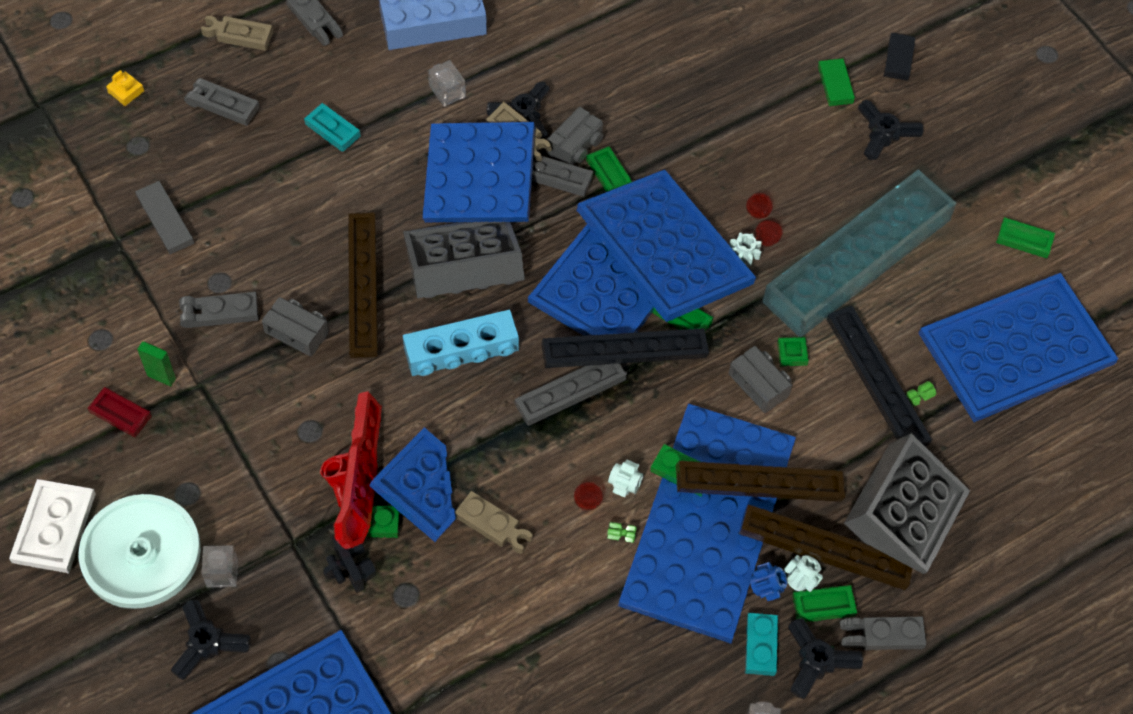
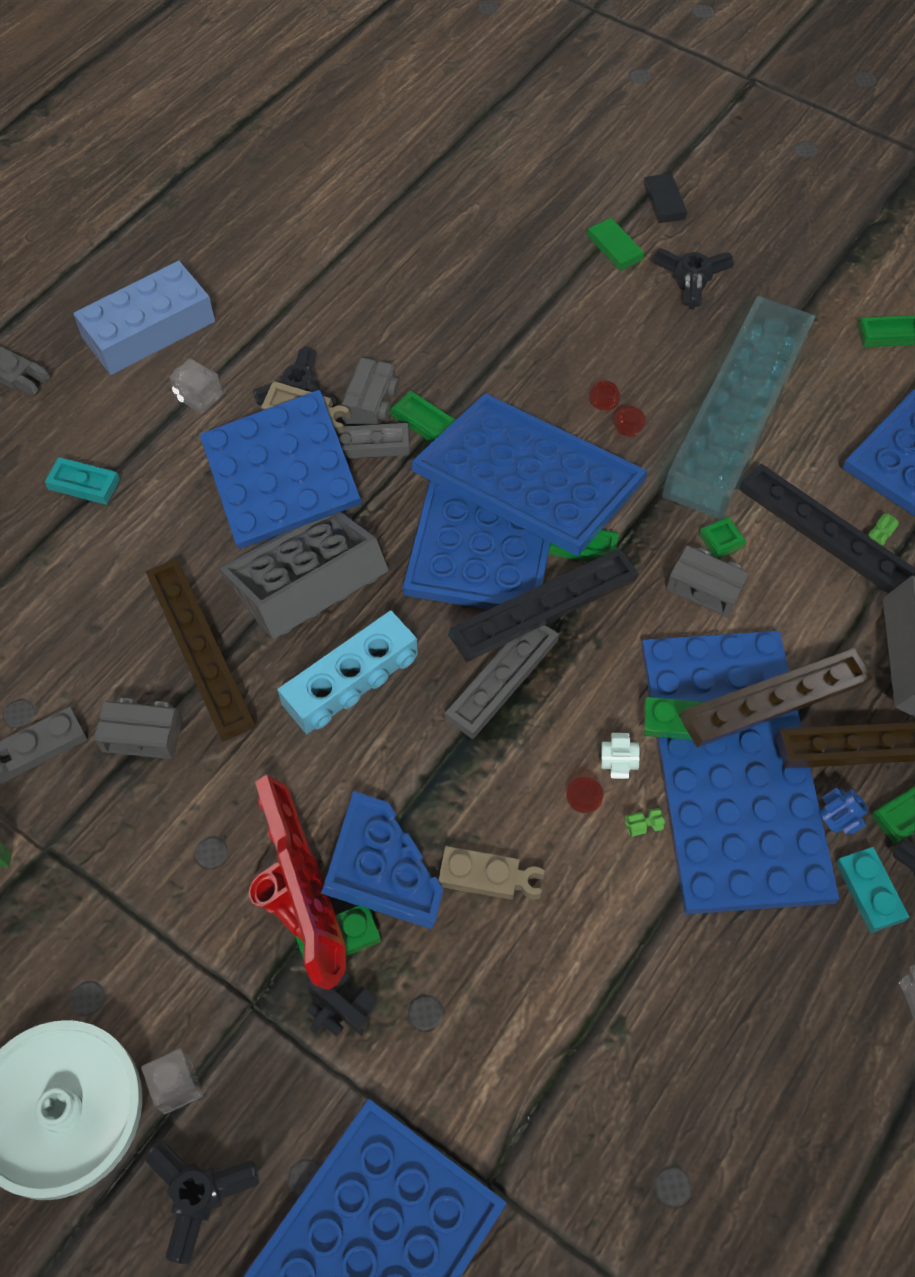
camera: 20 degrees left, 0 degrees up
(746, 248) = (617, 442): light aqua gear -> none
(803, 573) = (877, 784): light aqua gear -> none

